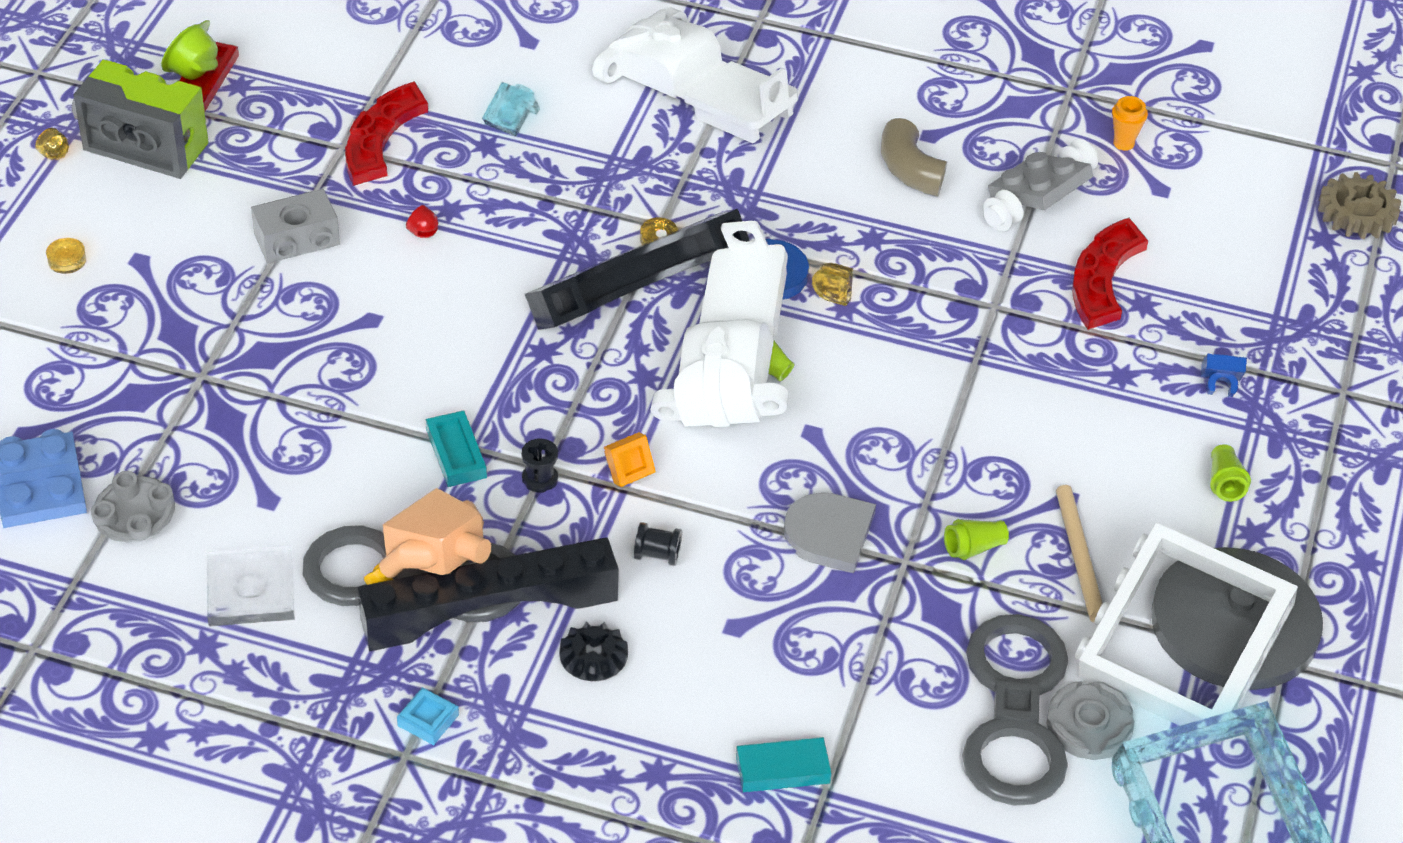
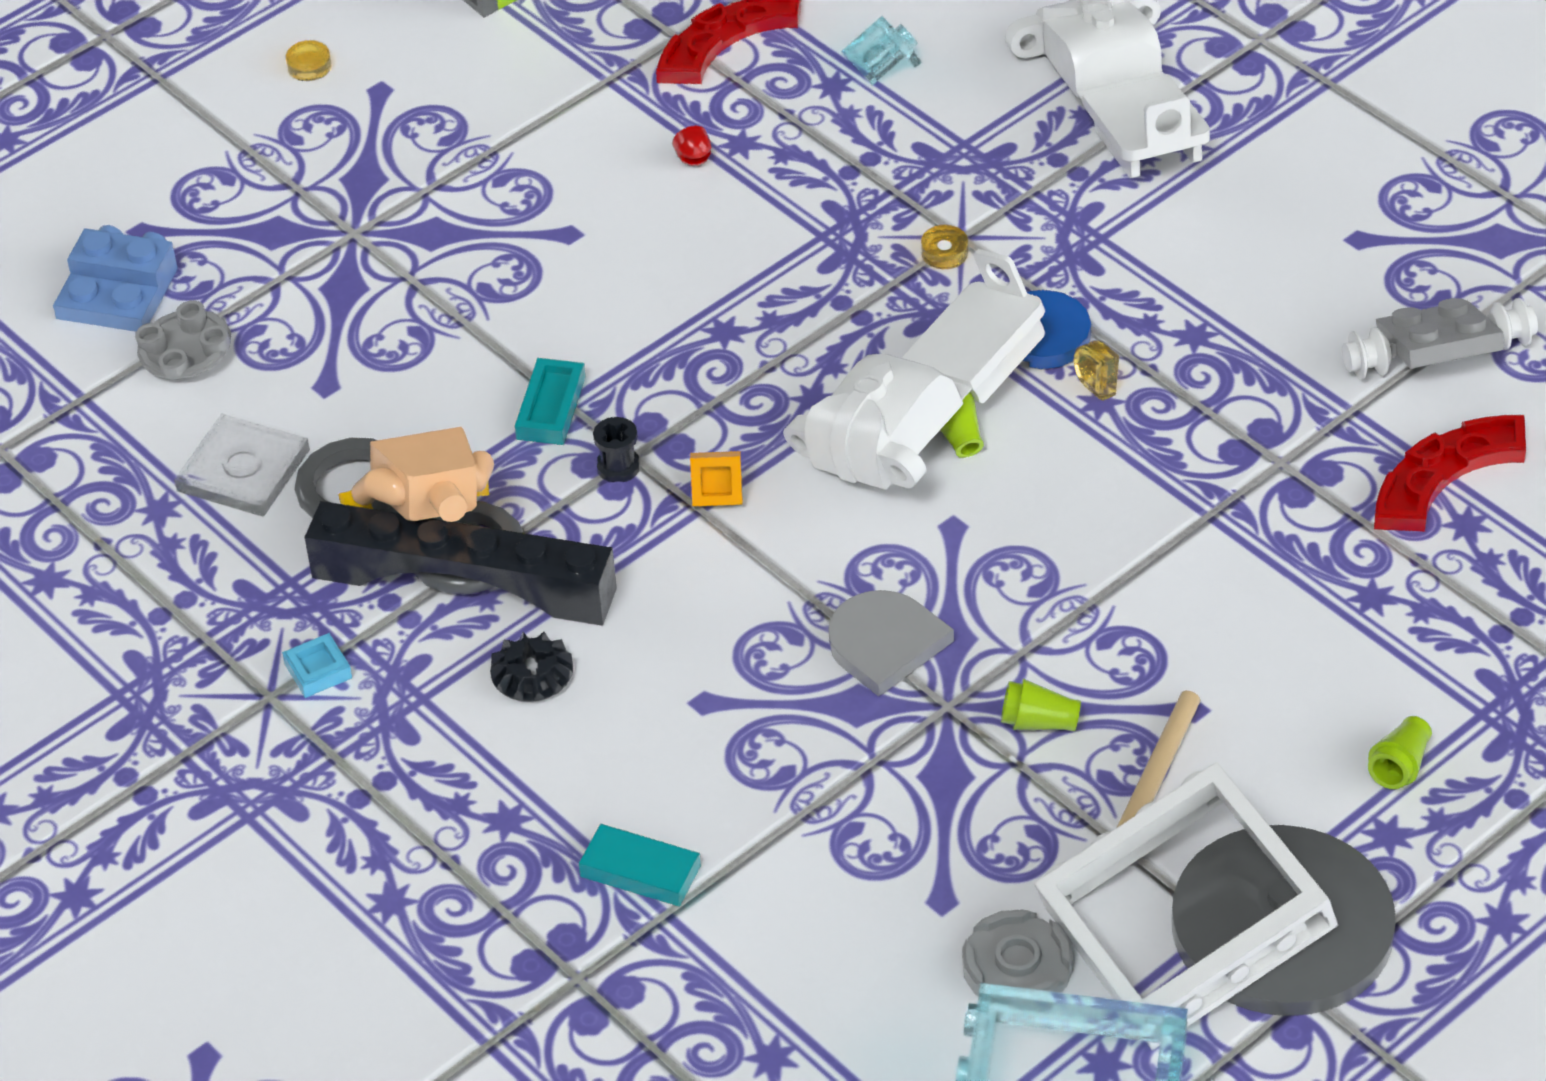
camera: 35 degrees right, 0 degrees up
(295, 225) = (553, 104): light grey brick -> none
(630, 271) = (866, 274): black arch -> none
(657, 543) = (679, 580): black bush -> none
(908, 161) = (1295, 258): dark tan cylinder -> none
(1016, 710) = (939, 913): dark grey bar -> none
(1223, 368) = (1490, 630): blue tile -> none

